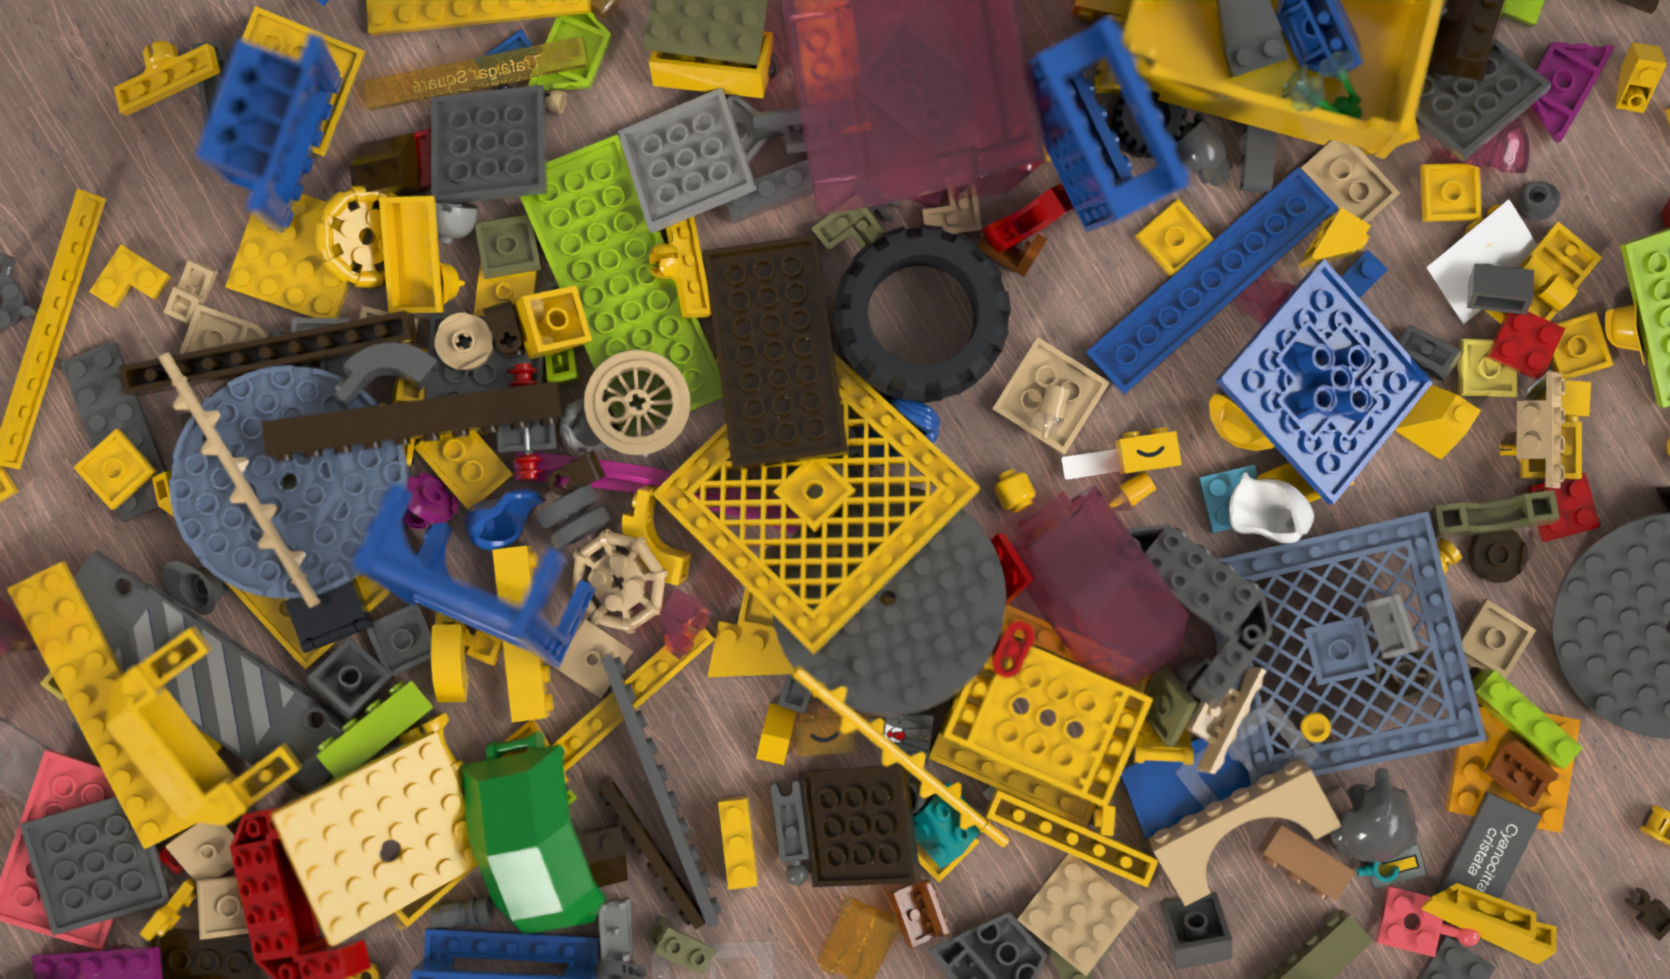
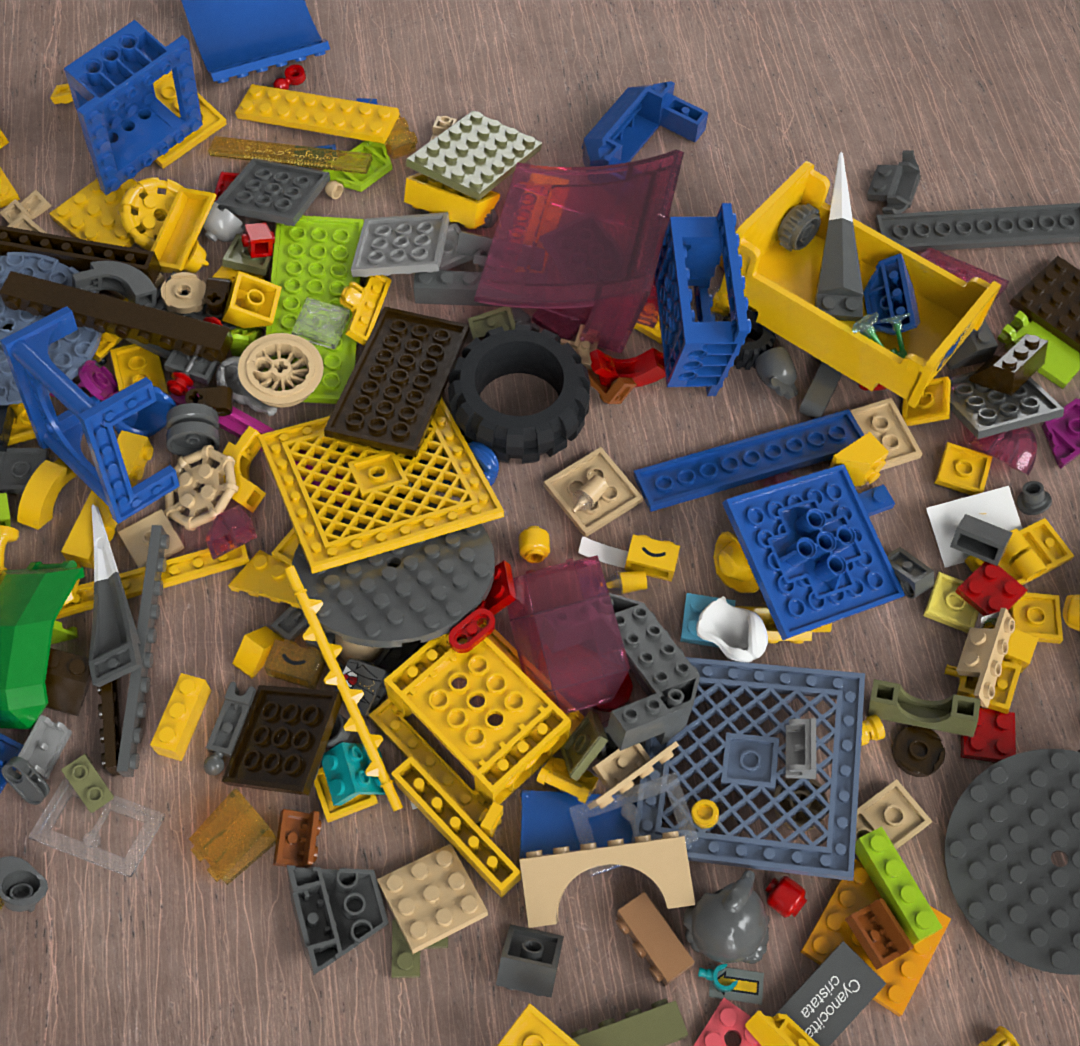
camera: 30 degrees right, 25 degrees down
(387, 165) = (200, 179): dark brown slope -> none
(483, 647) = (73, 496): yellow plate -> none
(511, 228) = (258, 240): none -> red brick
(628, 796) = (114, 634): none -> dark grey plate
(644, 311) = (321, 323): none -> clear plate
(1174, 238) = (734, 422): yellow tile -> none
(1417, 769) = (785, 896): none -> red head
(1438, 421) = (898, 625): yellow slope -> none

